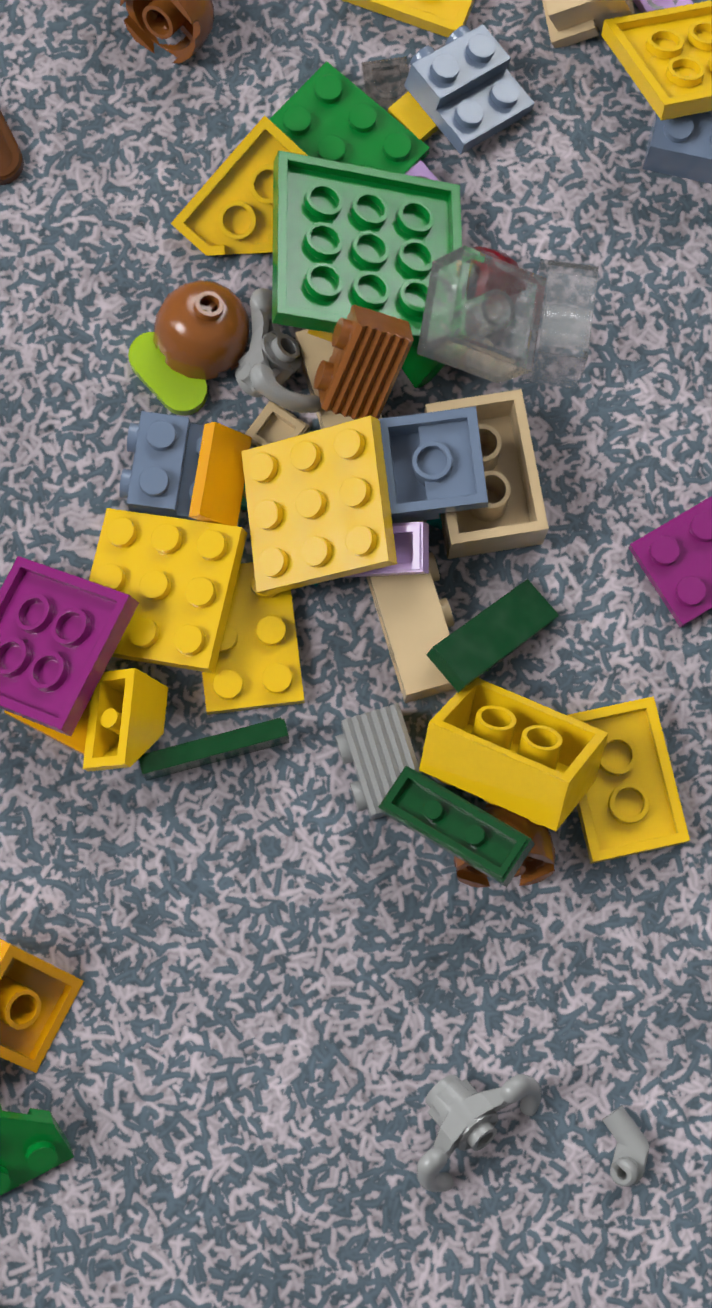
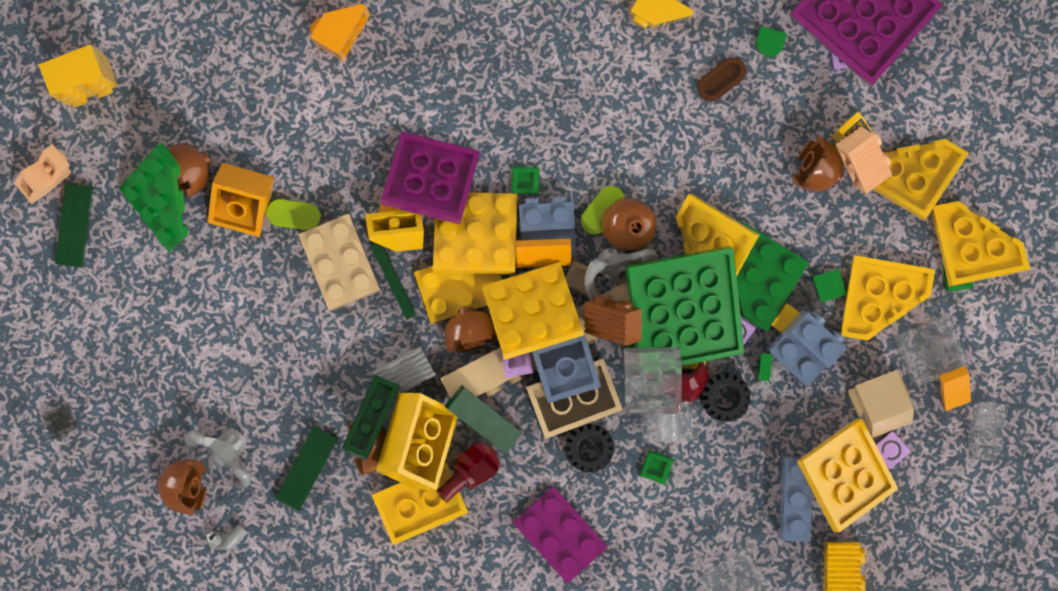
camera: 85 degrees right, 10 degrees up
(56, 909) = (293, 214): none -> lime tile
(87, 491) = (525, 180): none -> green tile
(160, 837) = (339, 262): none -> tan brick
(331, 627) = (469, 330): none -> dark orange cylinder
(371, 38) = (829, 285): none -> green tile
(488, 160) = (764, 367): none -> green tile
(523, 1218) = (181, 486): none -> dark orange cylinder
(524, 973) = (306, 468): none -> dark green tile
(529, 207) = (742, 397): none -> black tyre
(578, 674) = (470, 469): none -> dark red piece
(591, 448) = (596, 463): none -> black tyre
(626, 369) = (656, 467): none -> green tile

